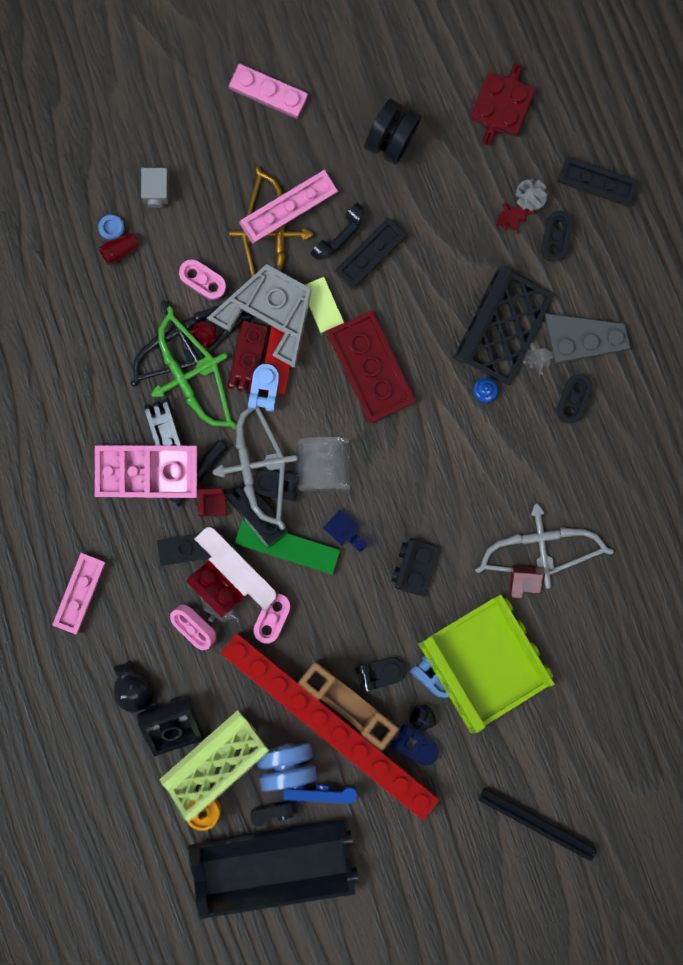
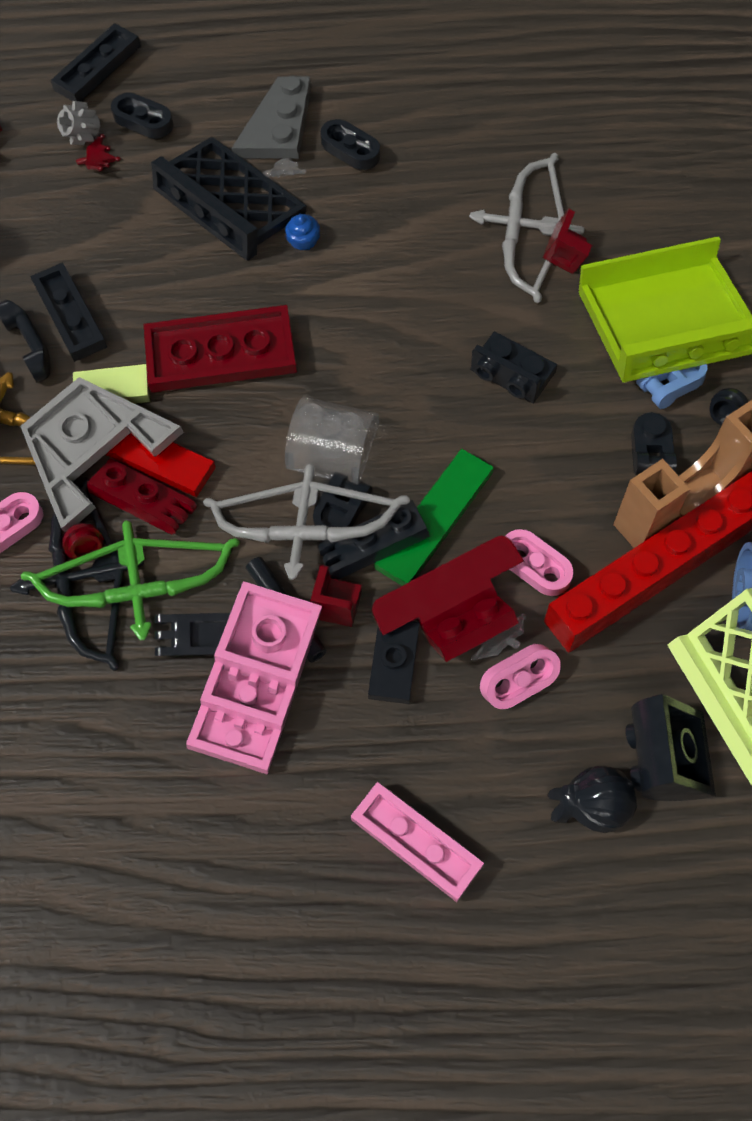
camera: 65 degrees left, 20 degrees down
(265, 378) = (182, 473): light blue plate -> none
(342, 530) = (433, 440): clear blue plate -> none

